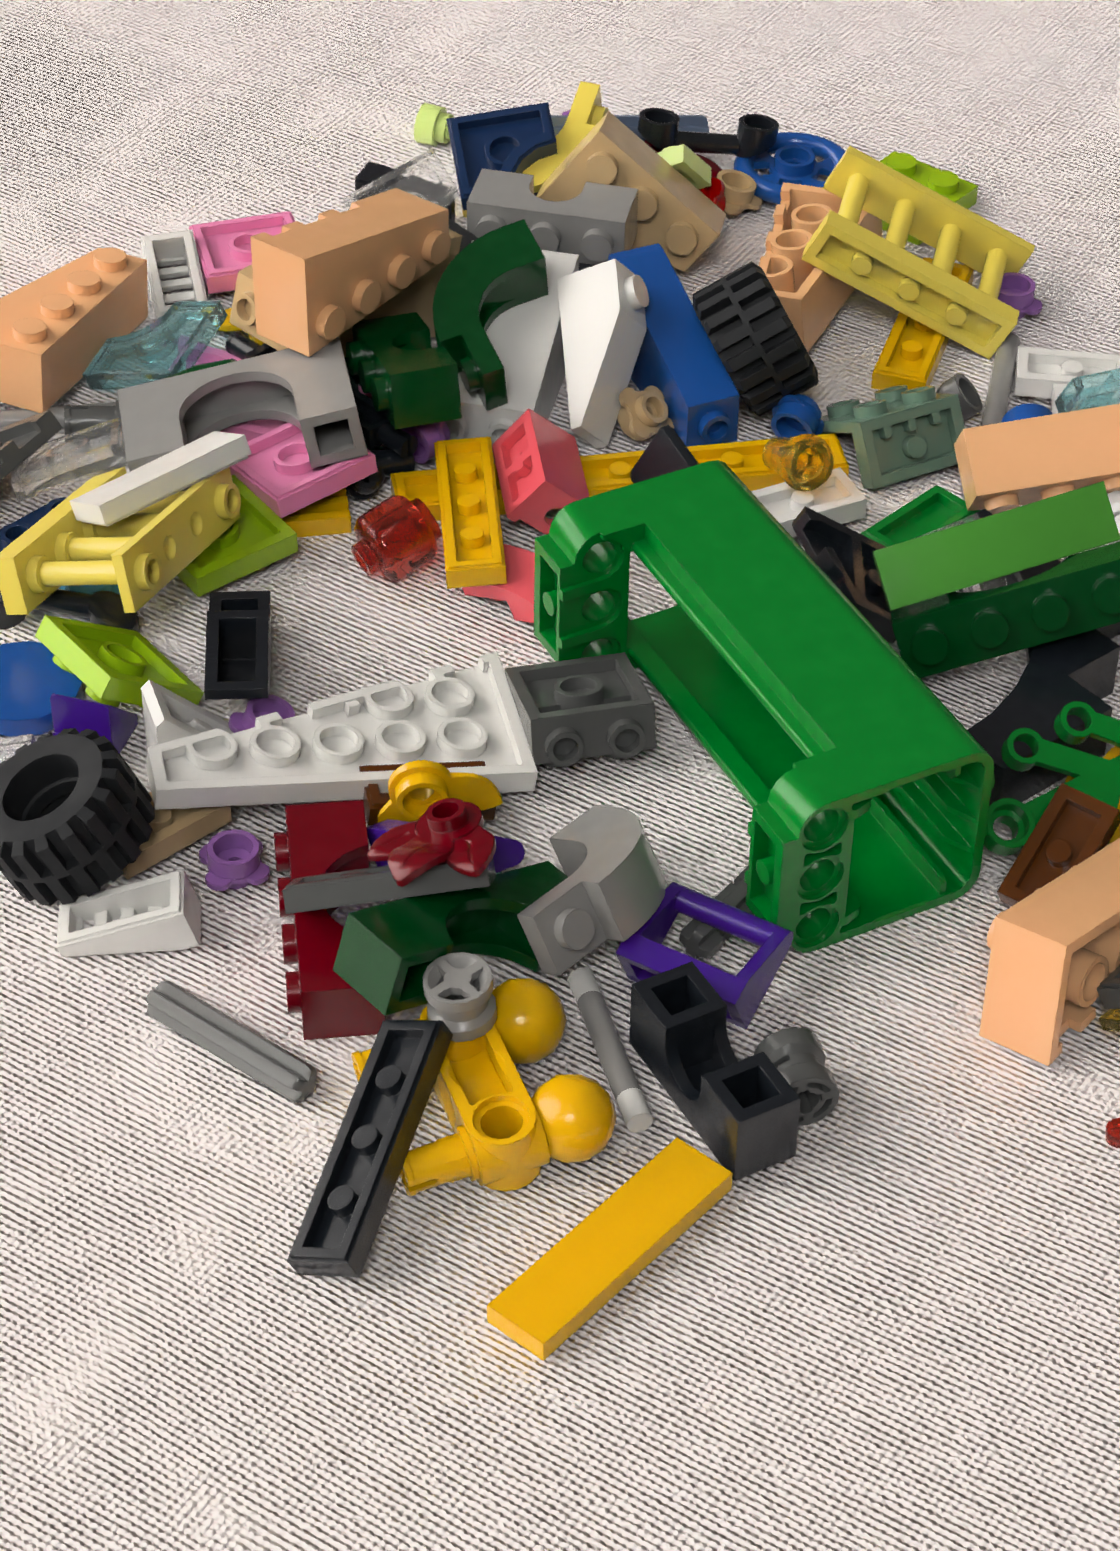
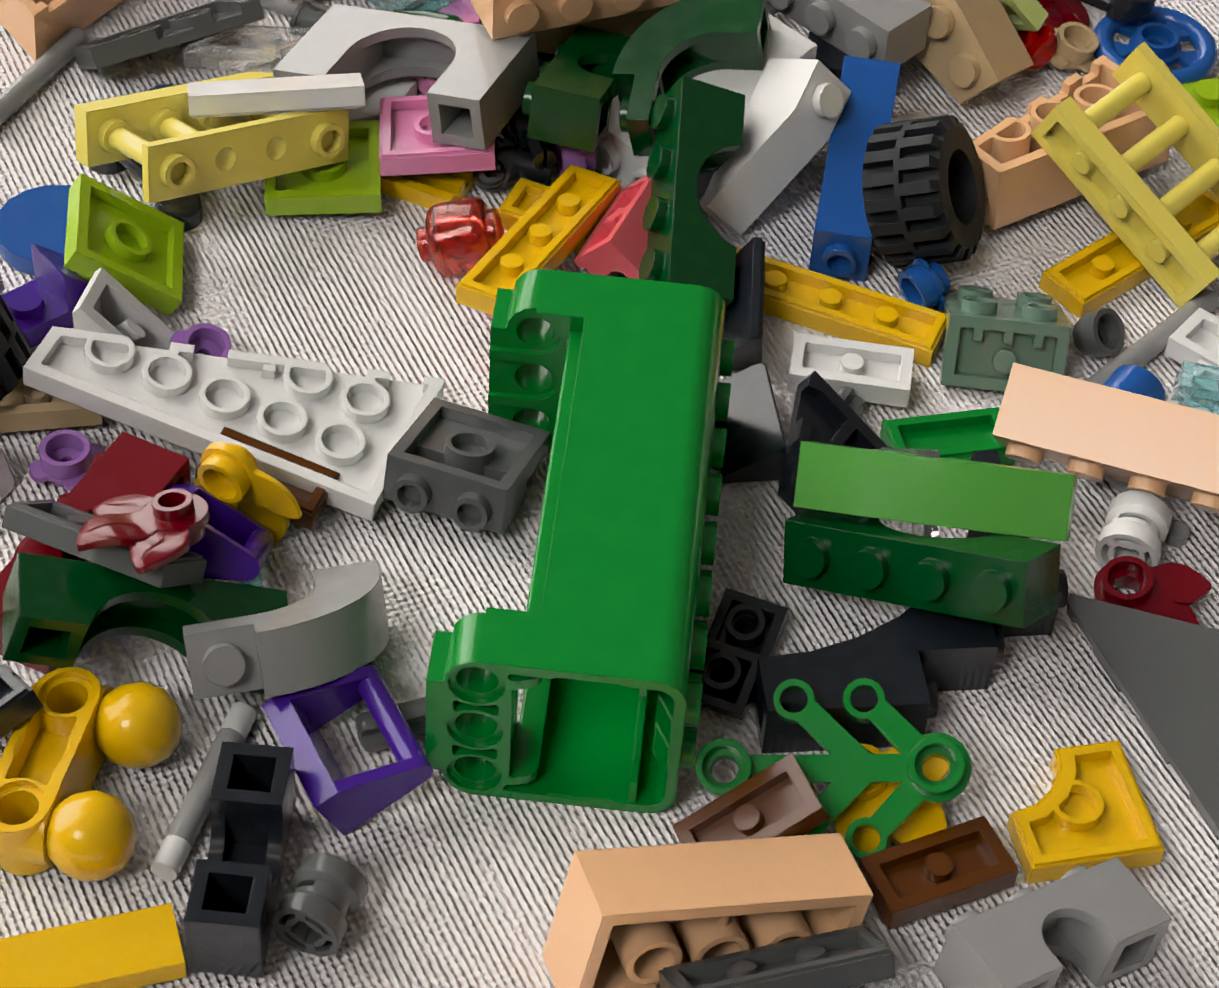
camera: 30 degrees right, 5 degrees up
(238, 645) = (233, 275): black slope -> none
(461, 995) = (69, 675): light grey wheel -> none
(545, 365) = (694, 134): none -> dark green arch
(642, 412) = (773, 219): tan plate -> none
(799, 460) = (861, 338): clear yellow cone -> none

